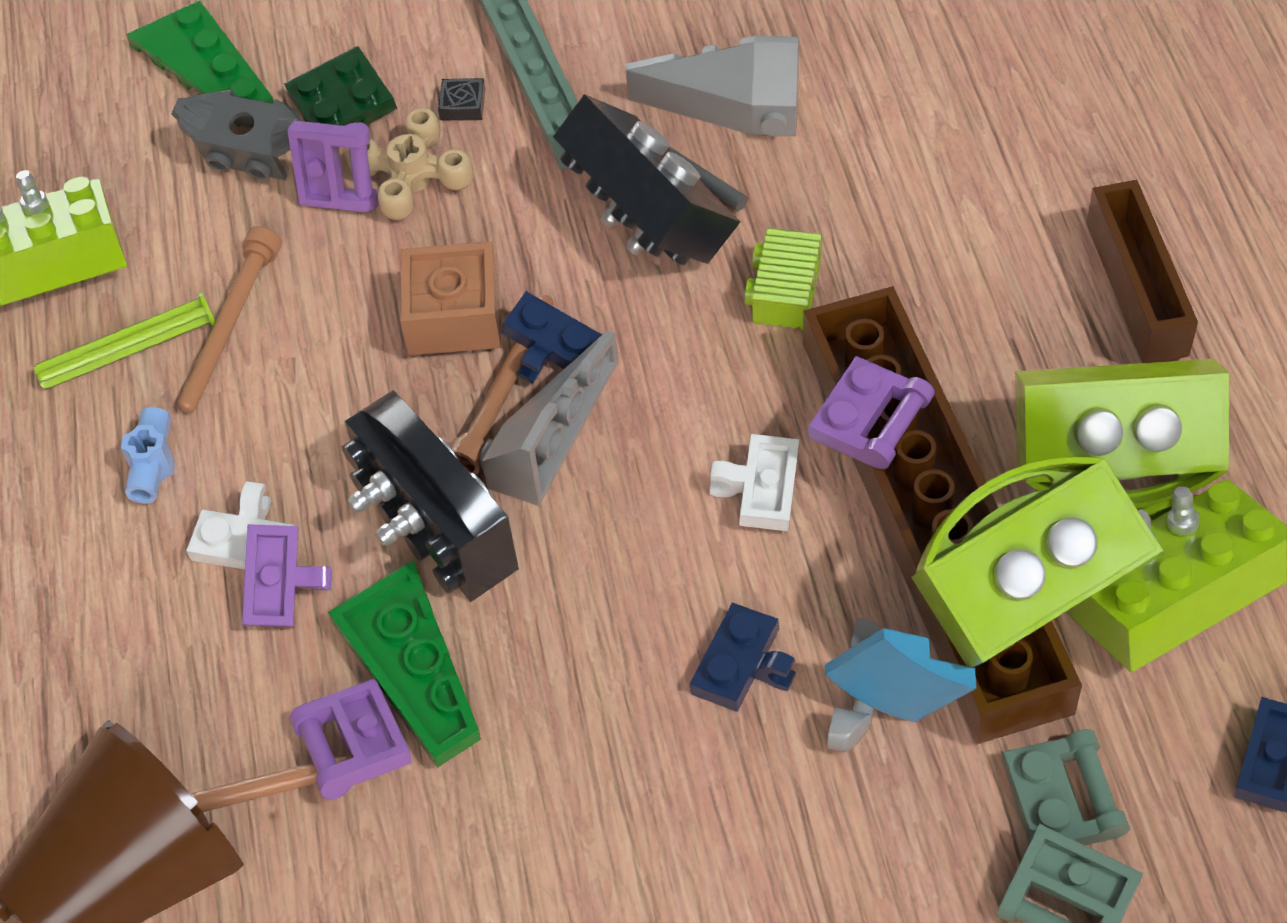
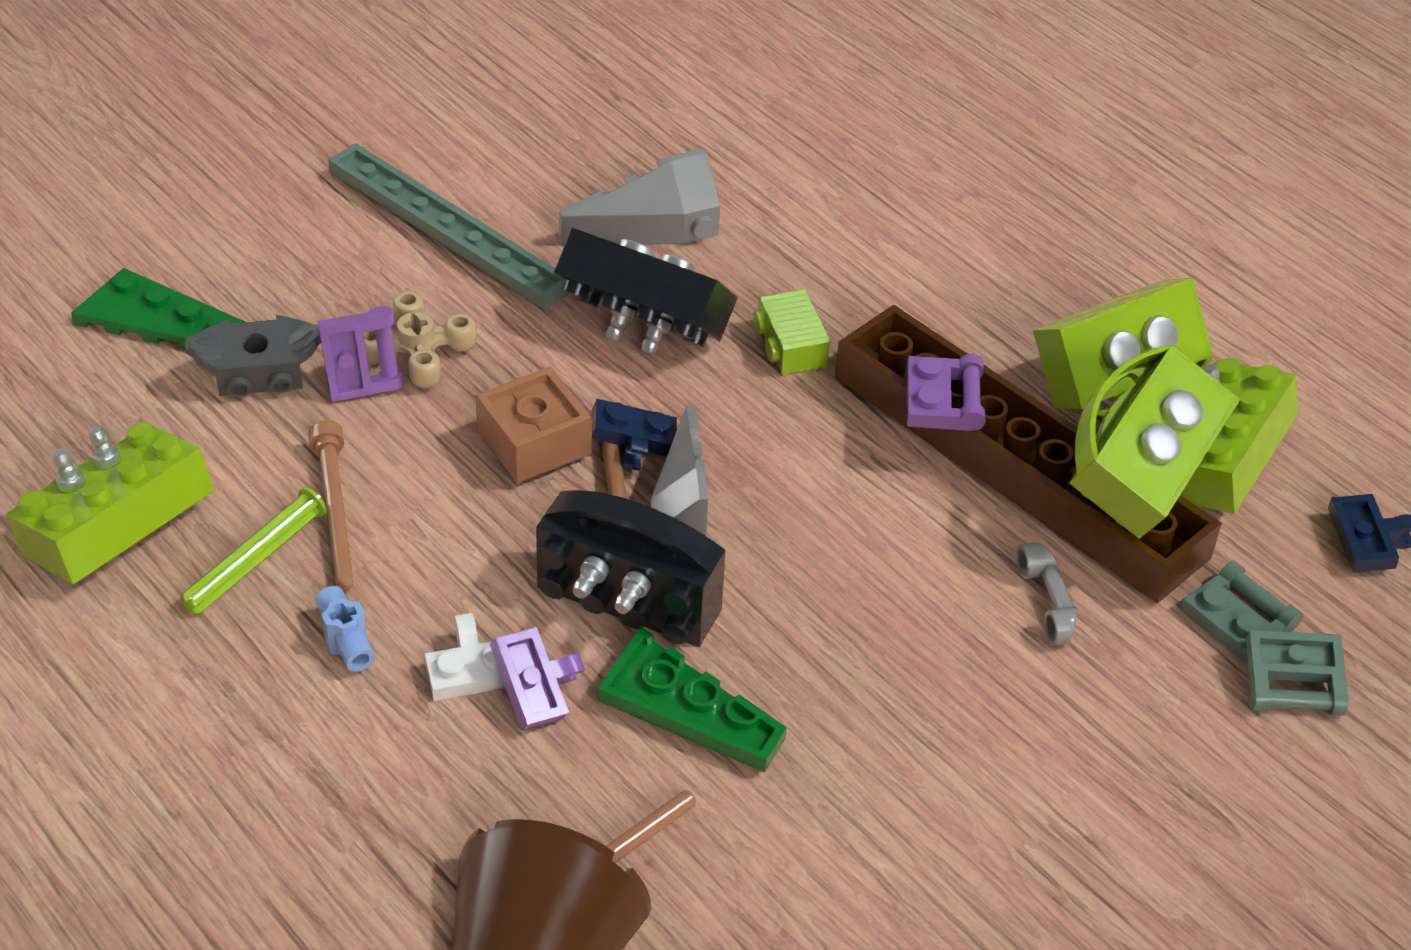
camera: 35 degrees left, 10 degrees down
(341, 91) = (312, 298): dark green plate -> none
(366, 729) = (690, 760): medium lavender plate -> none
(462, 99) = (423, 279): black tile -> none
(740, 656) = (945, 609): dark blue plate -> none
(765, 482) = (877, 475): white plate -> none
(898, 677) = (1092, 562): dark azure slope -> none
(1141, 272) = (1055, 247): reddish brown brick -> none

